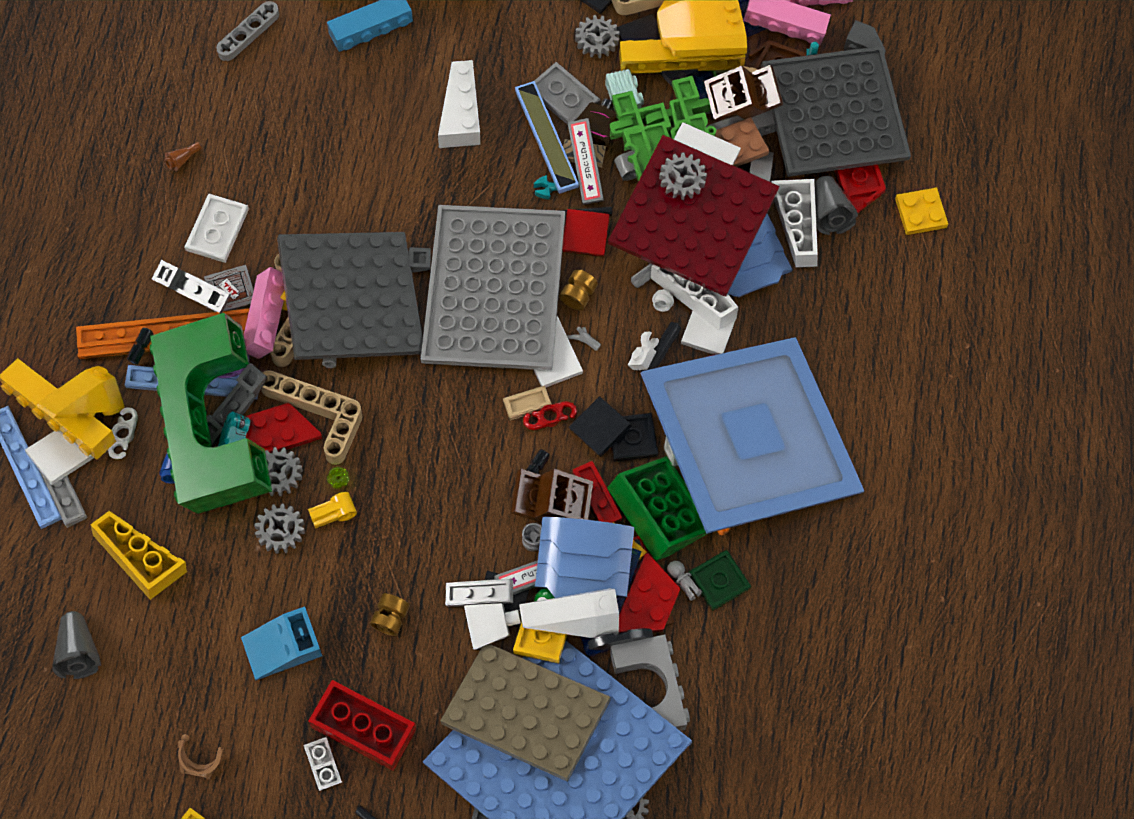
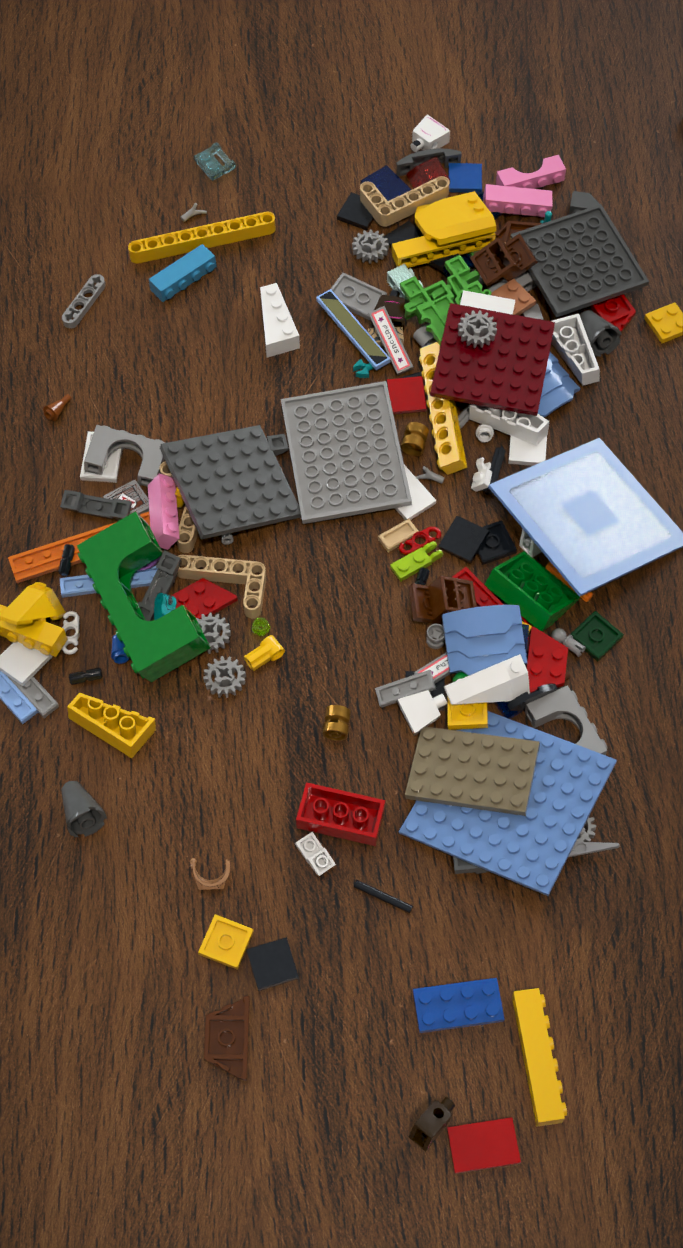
camera: 10 degrees left, 5 degrees down
(121, 489) = (80, 677): none -> black piece
(223, 212) = (108, 440): none -> light grey arch
(281, 644) = (254, 766): dark azure slope -> none
(536, 439) = (414, 561): none -> lime hinge
(619, 275) = (443, 417): none -> yellow brick

